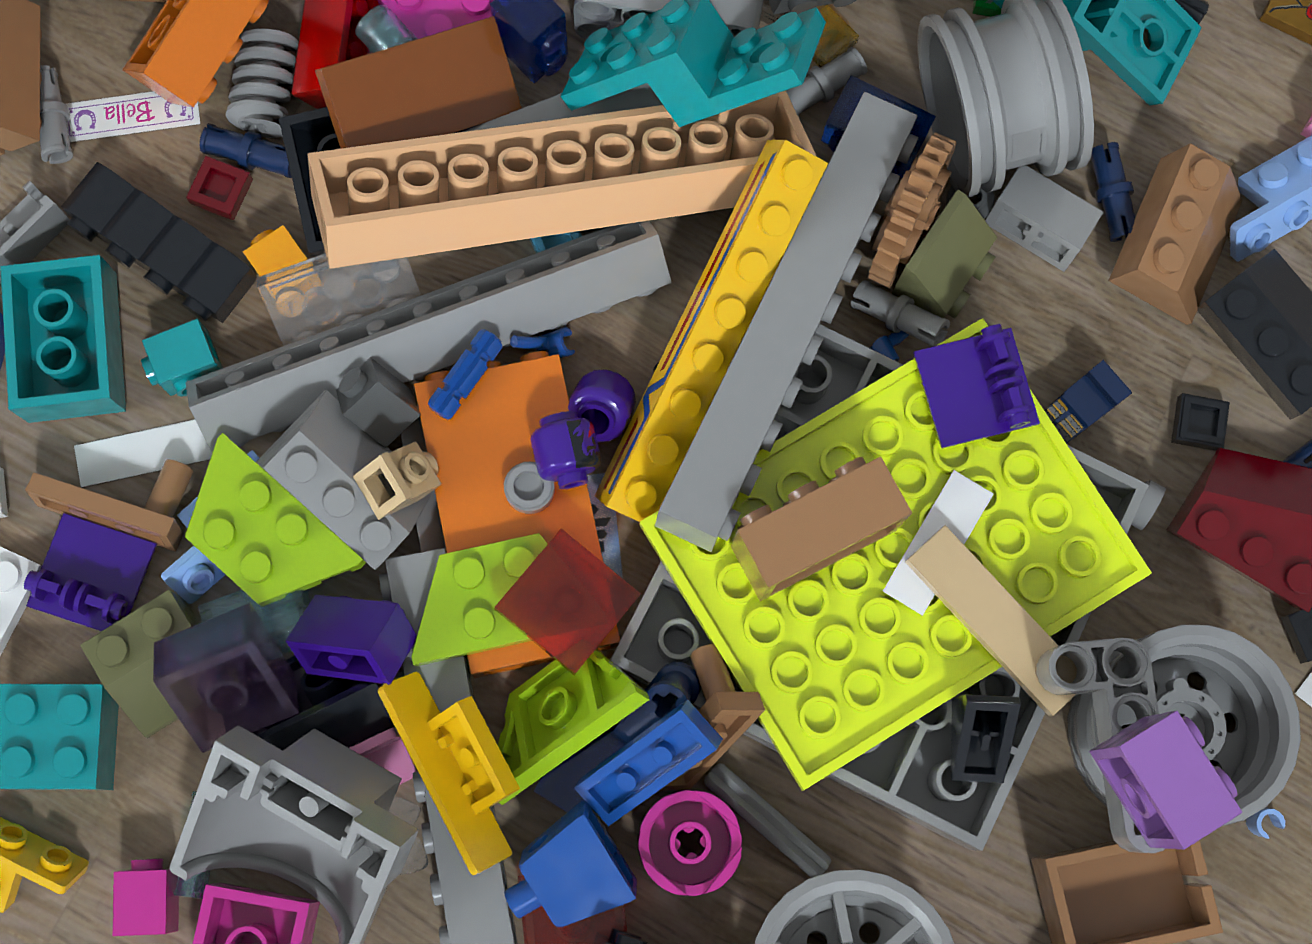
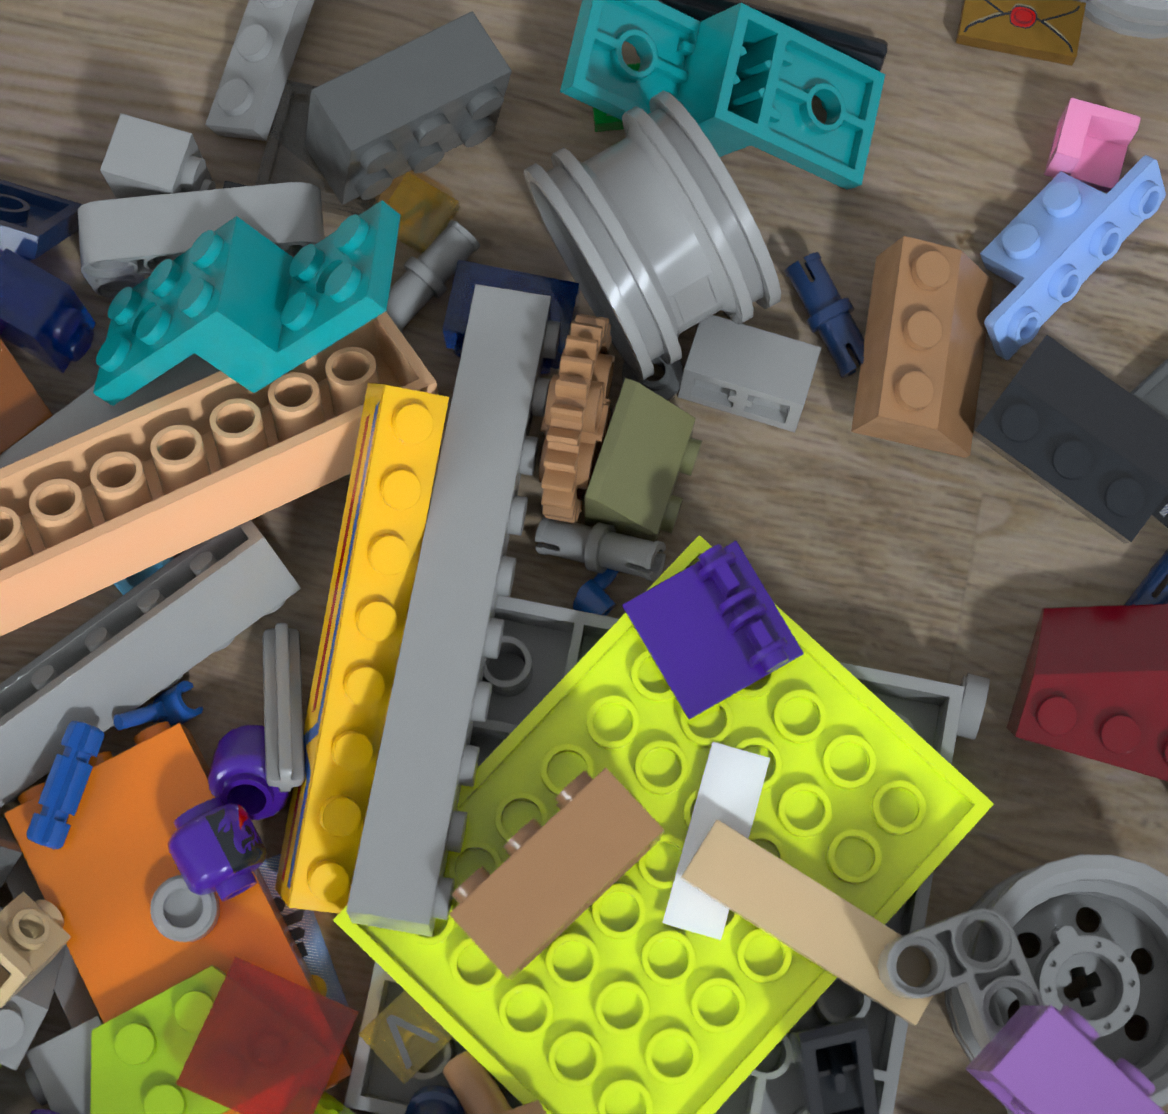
camera: 10 degrees left, 0 degrees up
(637, 364) = (283, 708): none -> light grey axle
(670, 622) = (405, 1037): none -> clear yellow tile
(1087, 401) = (859, 600): dark blue leg -> none
(1200, 422) = (1013, 578): black tile -> none

